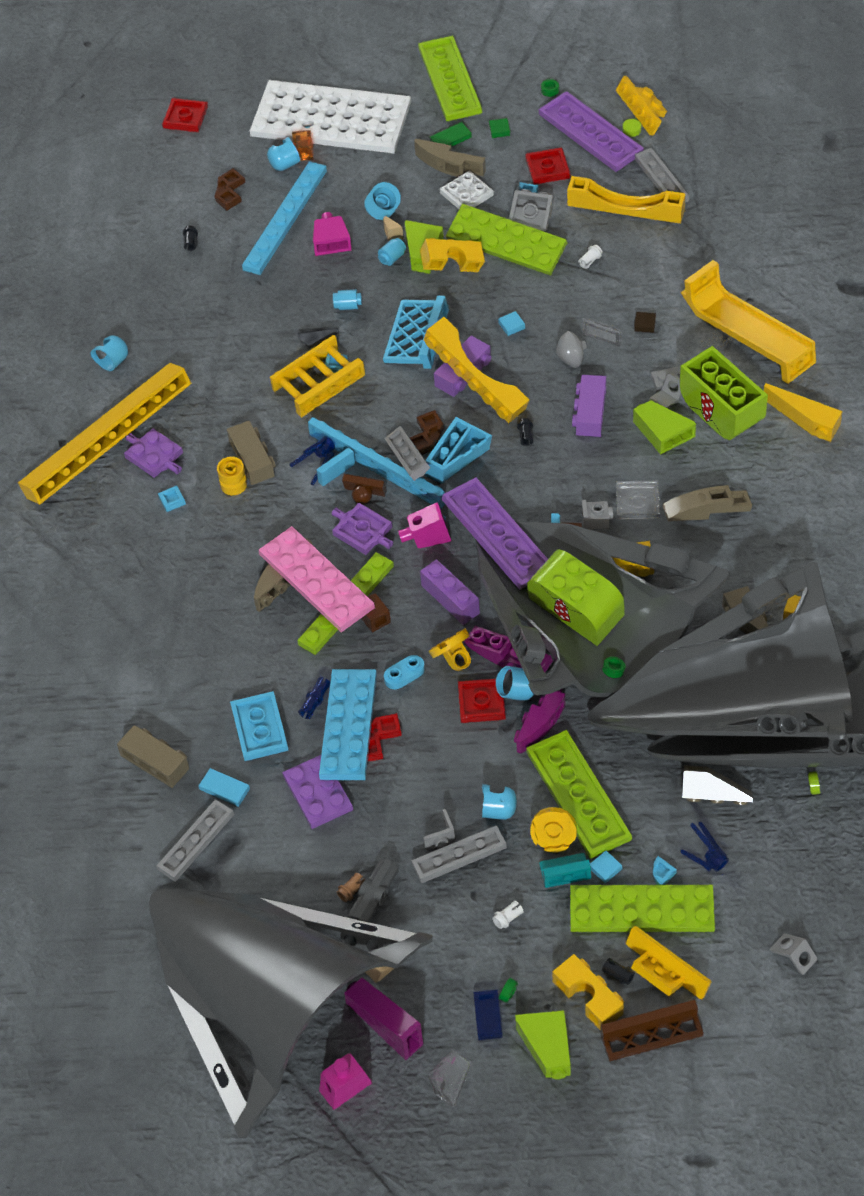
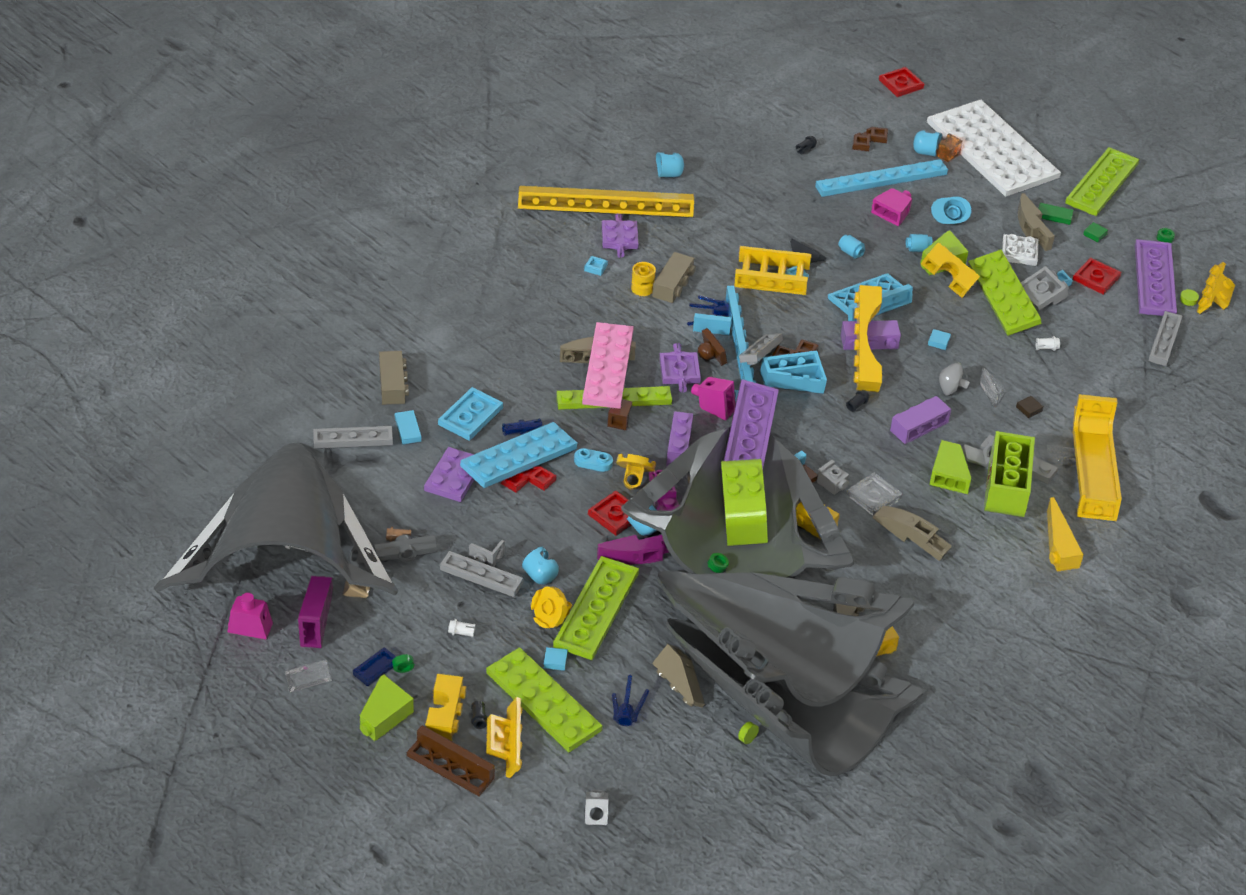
camera: 40 degrees right, 10 degrees down
(392, 229) = (936, 230): tan slope -> none
(565, 870) = (528, 638): teal panel -> none
(587, 194) = (1096, 308): yellow arch -> none
(662, 871) = (585, 693): medium azure tile -> none

